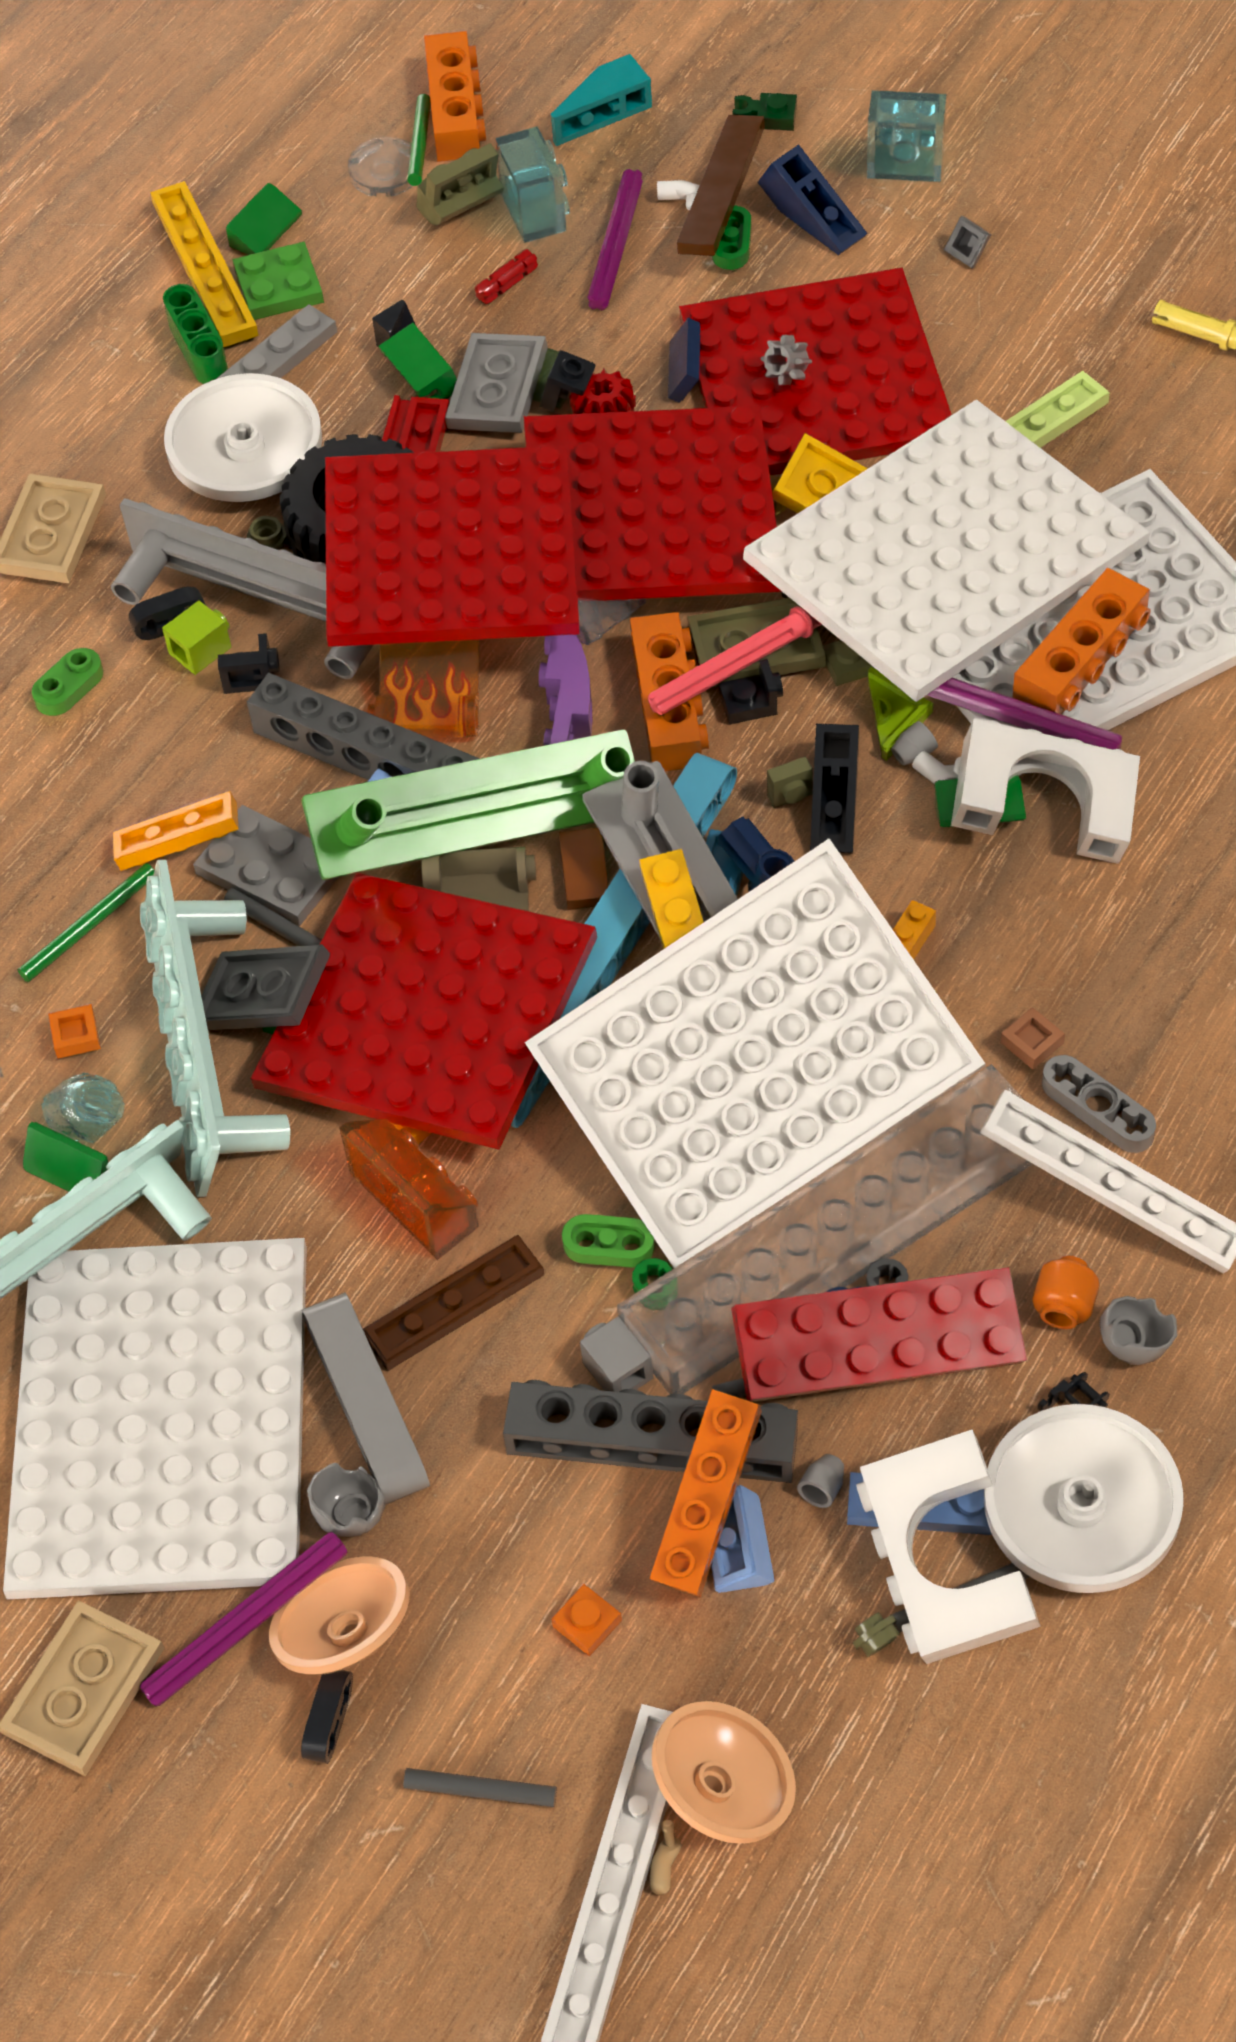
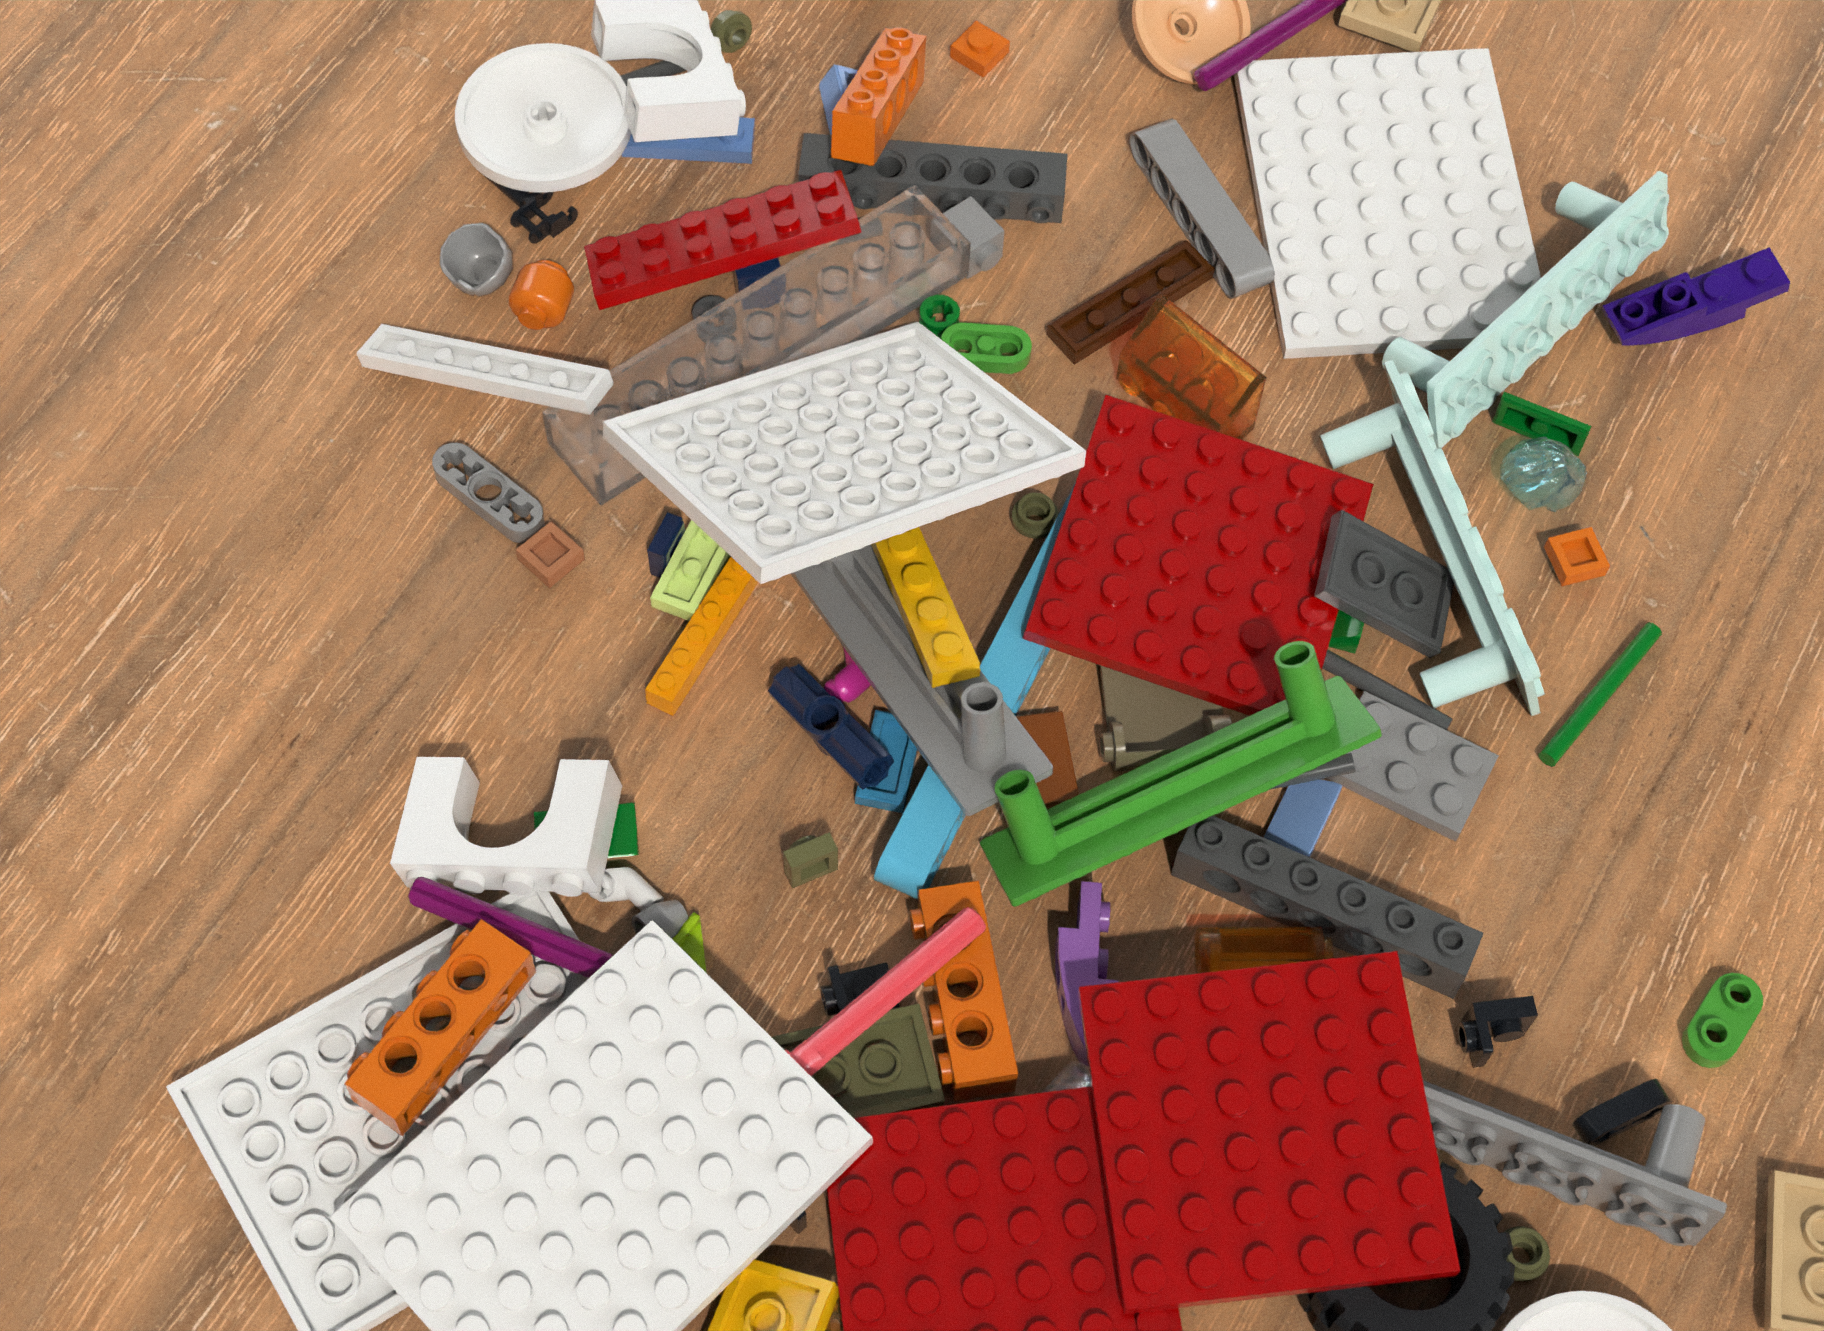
camera: 170 degrees right, 5 degrees up
(175, 831) = (1528, 782): light orange plate -> none
(197, 637) = (1573, 1072): lime brick -> none
(345, 1500) = (1204, 114): light grey hair -> none
(822, 1481) = (776, 148): light grey hose -> none
(835, 785) = (756, 857): black slope -> none

